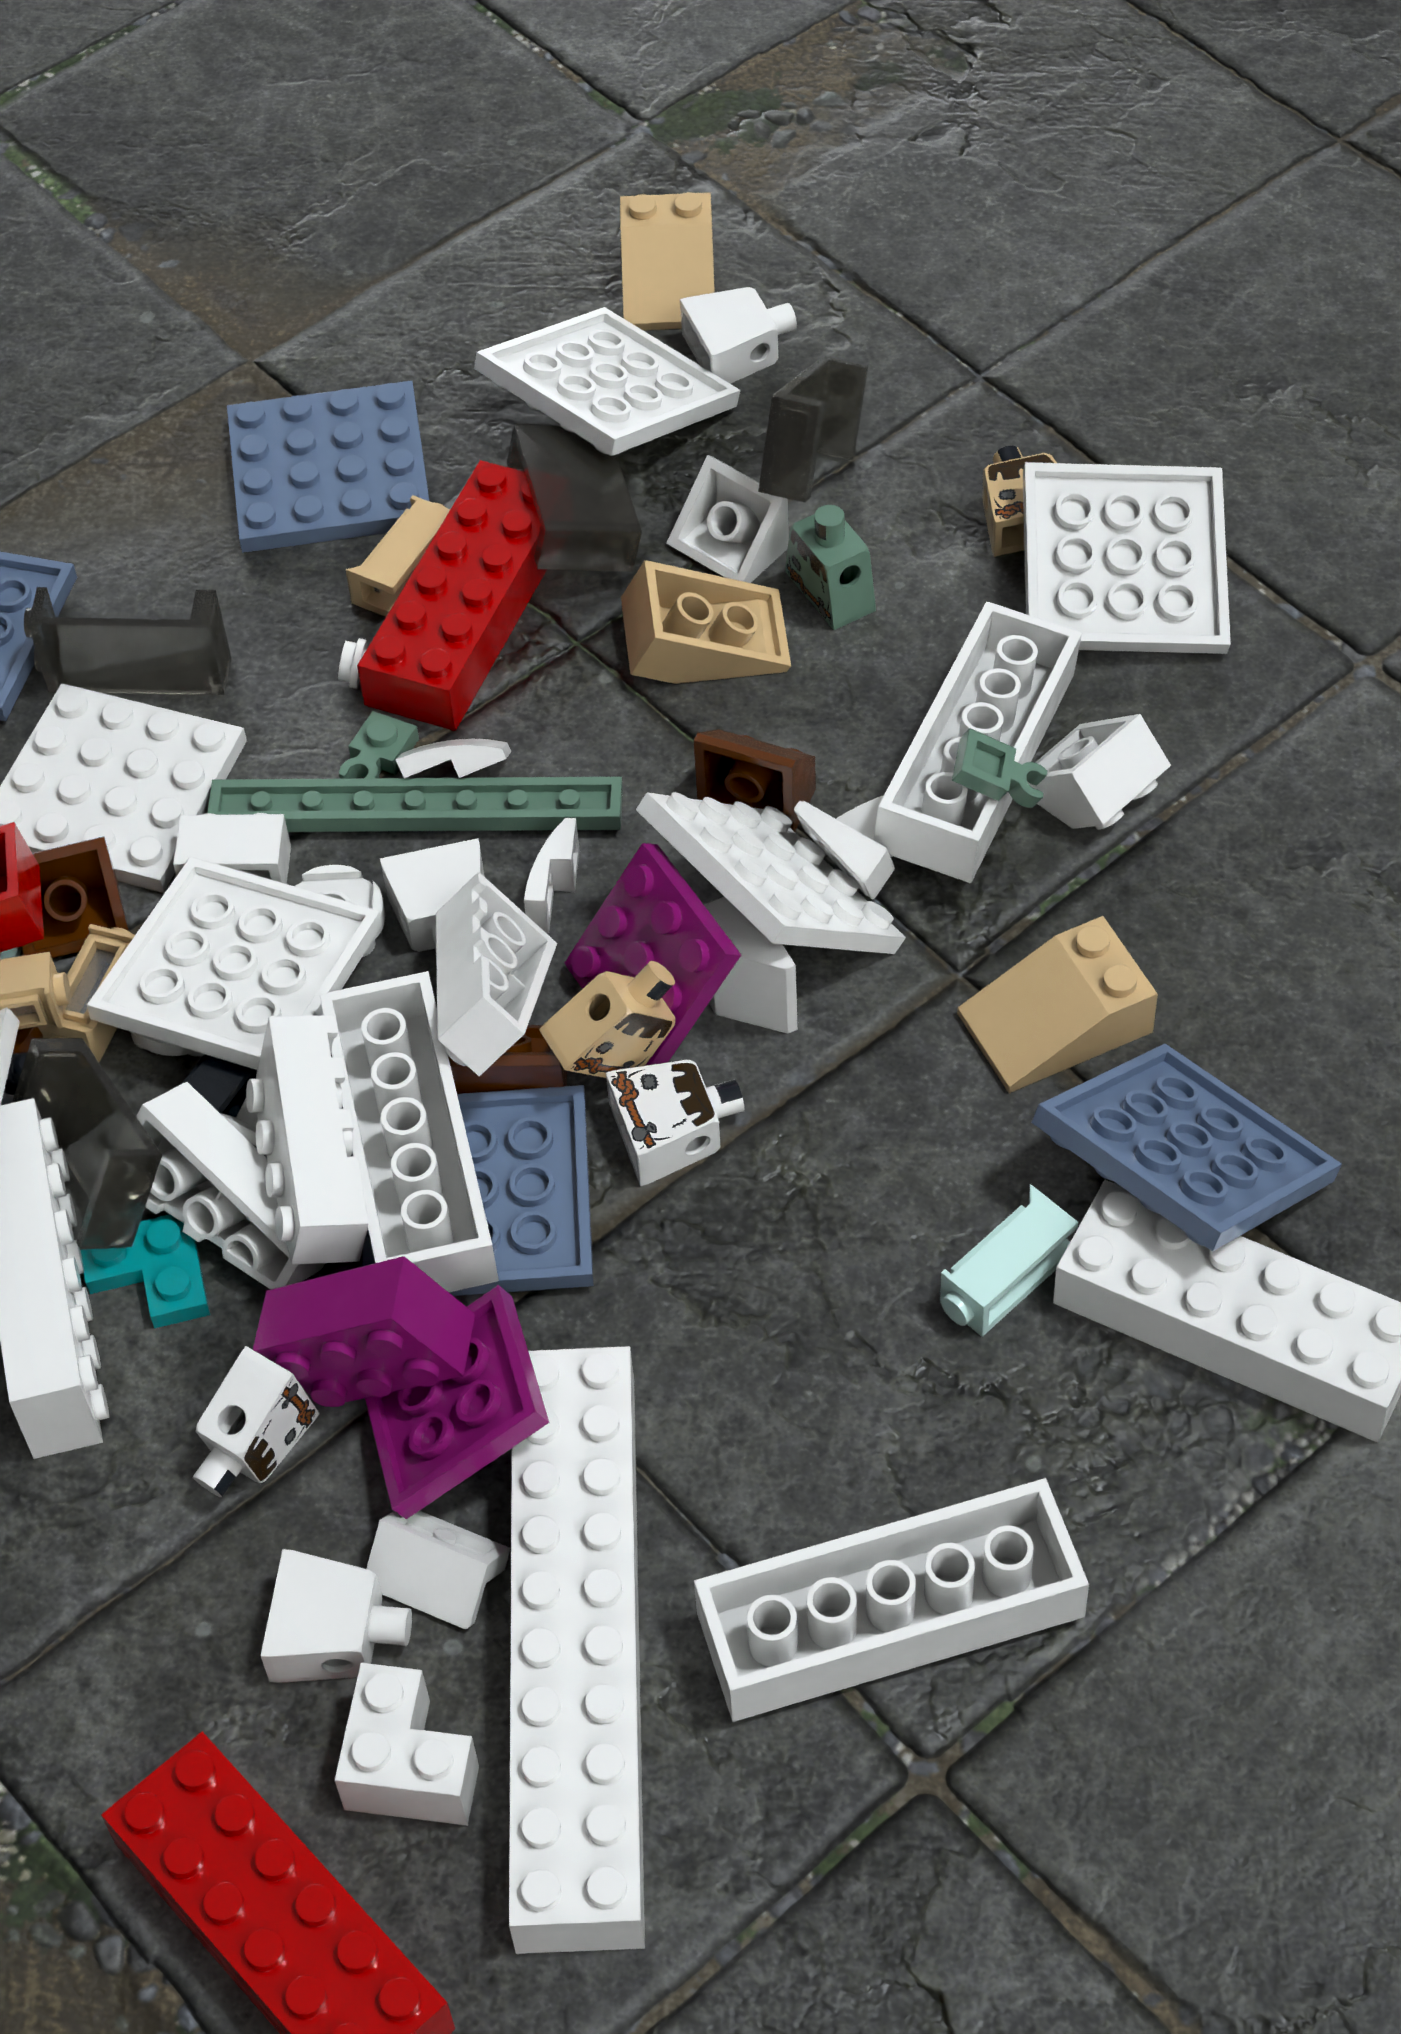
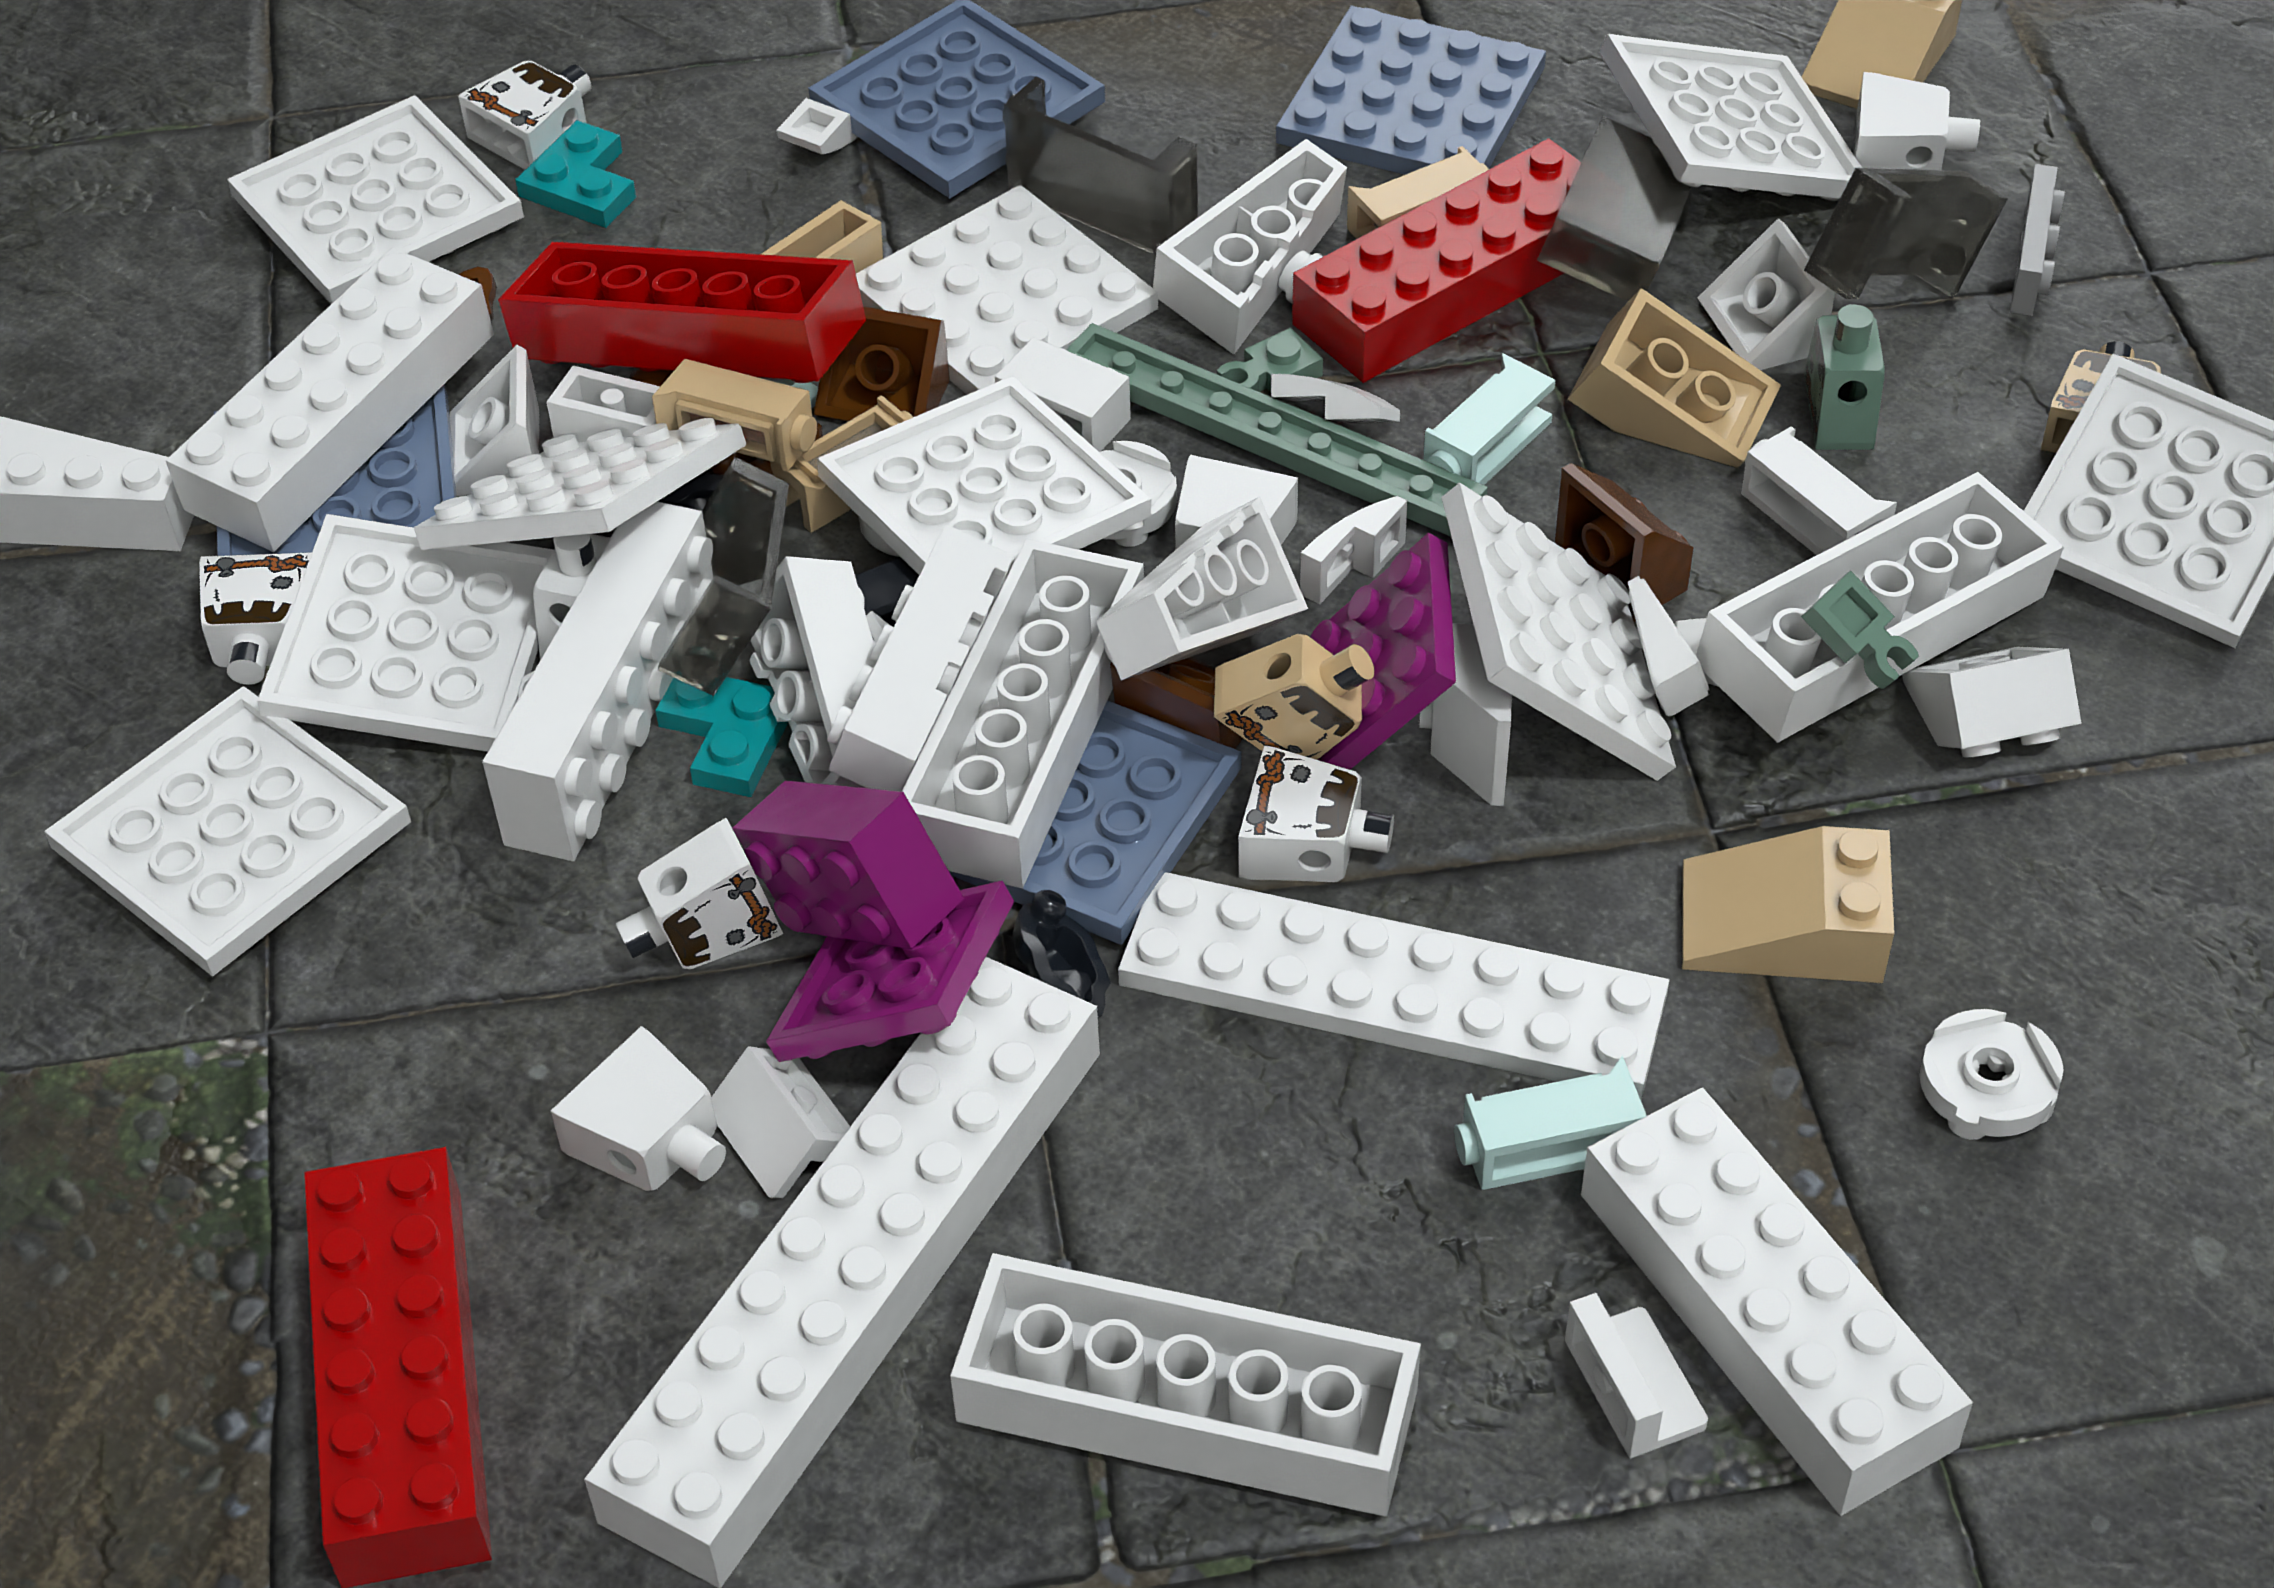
camera: 30 degrees right, 5 degrees down
(293, 667) = (1230, 259): none -> white wedge
(395, 1764) = (609, 1269): white brick -> none
(557, 1316) = (1059, 949): none -> black arm
(587, 720) = (1491, 423): none -> light aqua window
(811, 1212) = (1392, 982): none -> white plate
(867, 675) = (1808, 493): none -> white window
(890, 386) = (2037, 240): none -> light grey plate
(1181, 1419) = (1633, 1376): none -> white panel
(1186, 1146) = (1818, 1098): sand blue plate -> none
(1282, 1091) = (1986, 1106): none -> white plate

